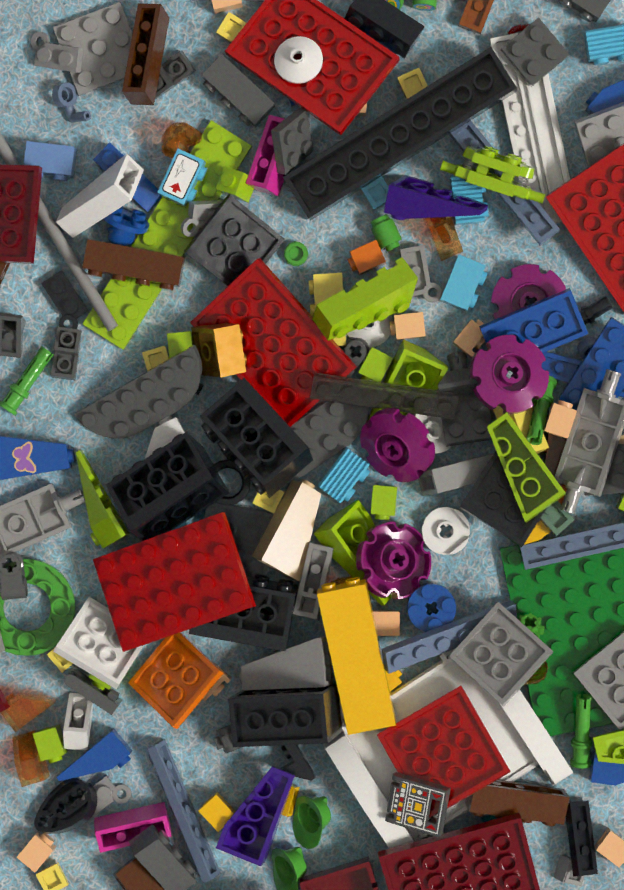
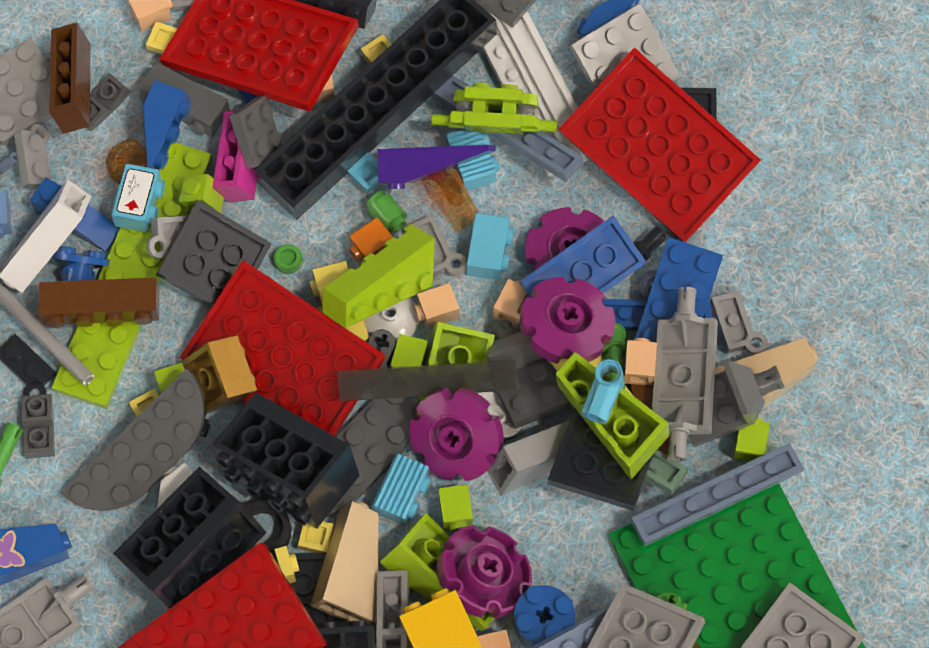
camera: 15 degrees left, 20 degrees down
(102, 115) = (32, 155): none -> light grey hinge
(102, 514) = (120, 602): lime wedge -> none
(216, 109) = (162, 117): none -> blue slope
(240, 520) = (287, 563): none -> light yellow plate
(298, 70) = (248, 55): white dish -> none
(447, 516) = (537, 510): white plate -> none
(518, 459) = (603, 393): none -> medium azure piece
(538, 532) = (649, 498): yellow piece -> none

